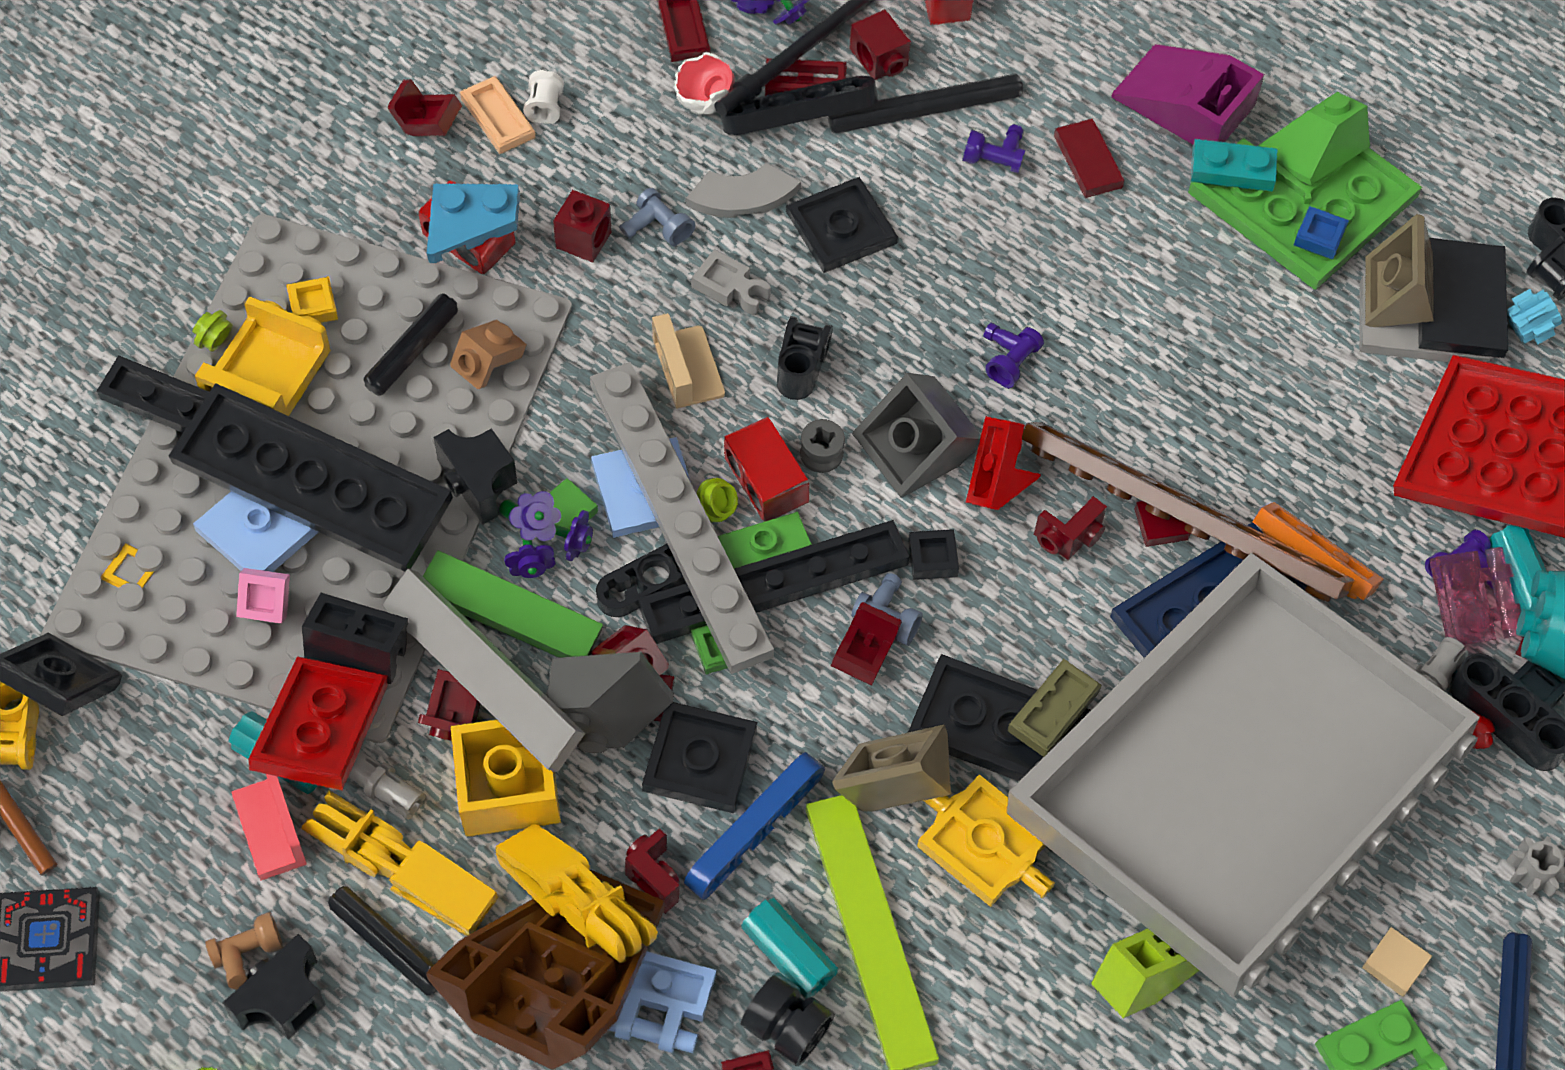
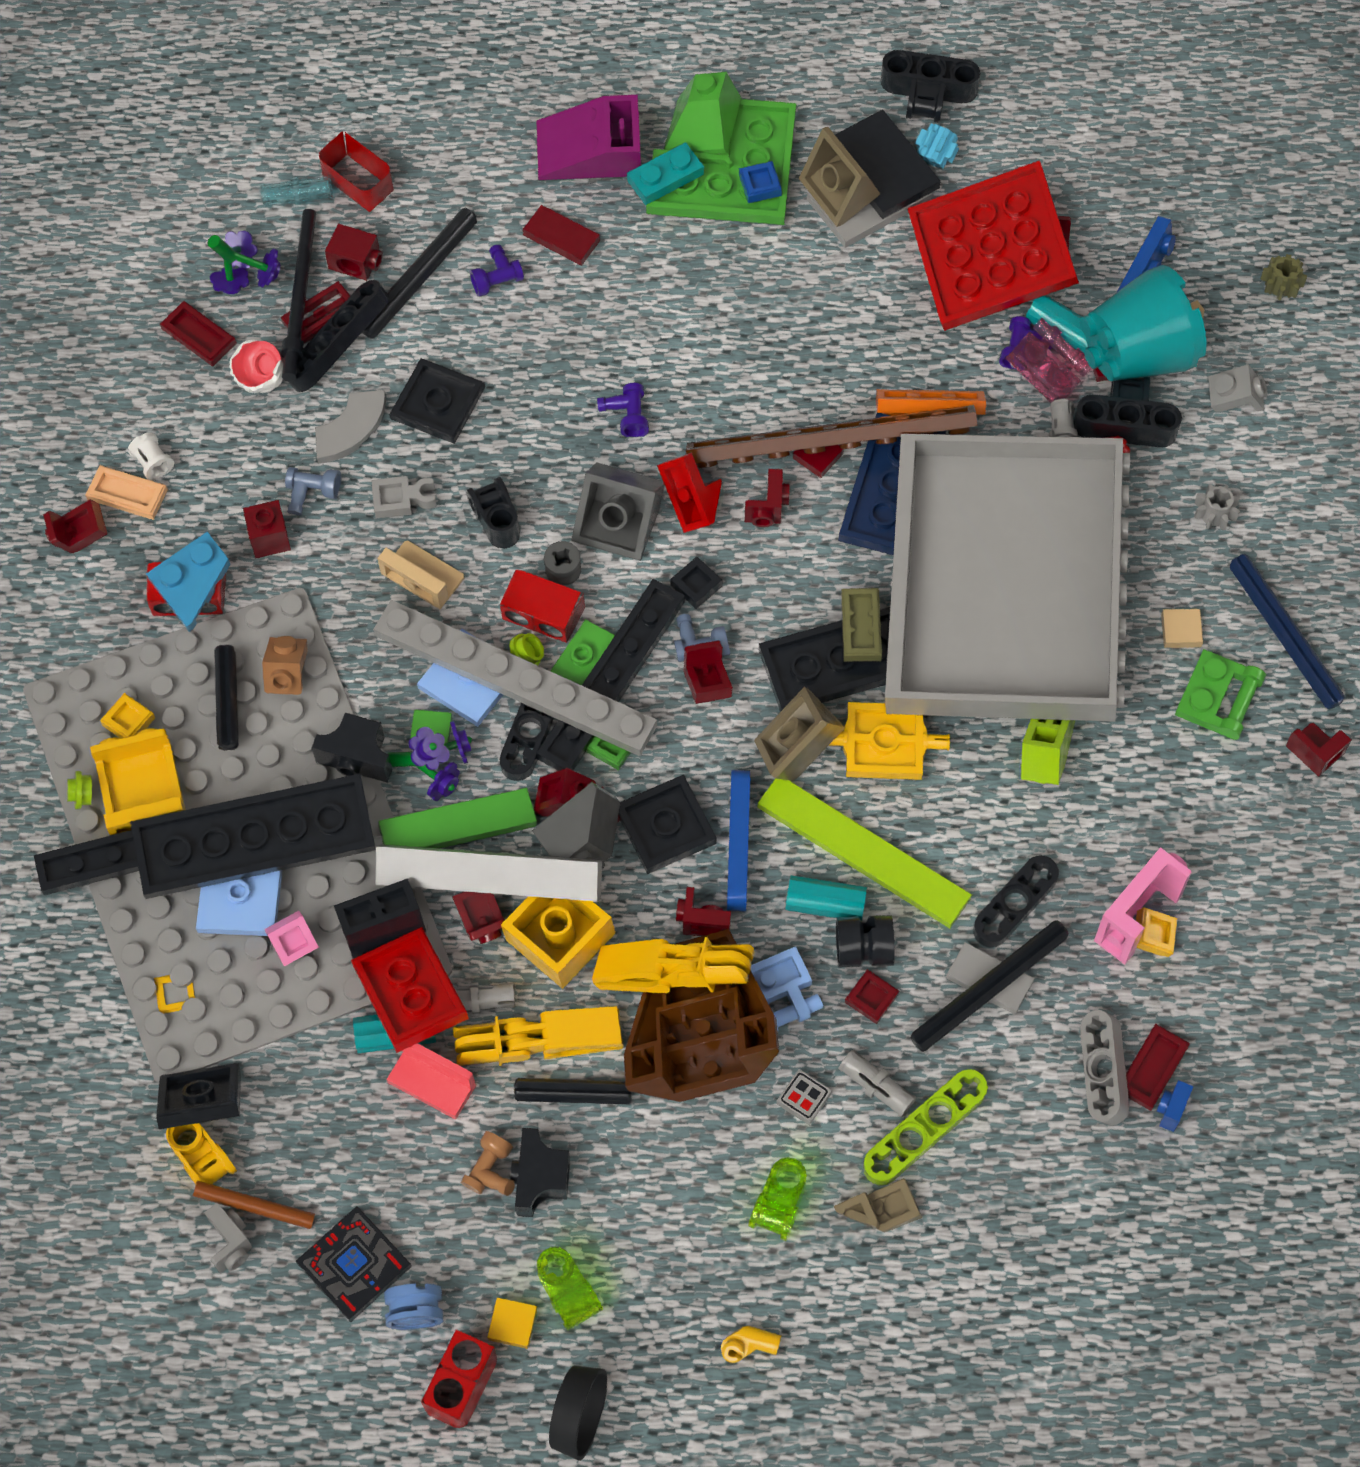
camera: 35 degrees left, 5 degrees up
(51, 1022) = (413, 1306): none -> medium blue wheel

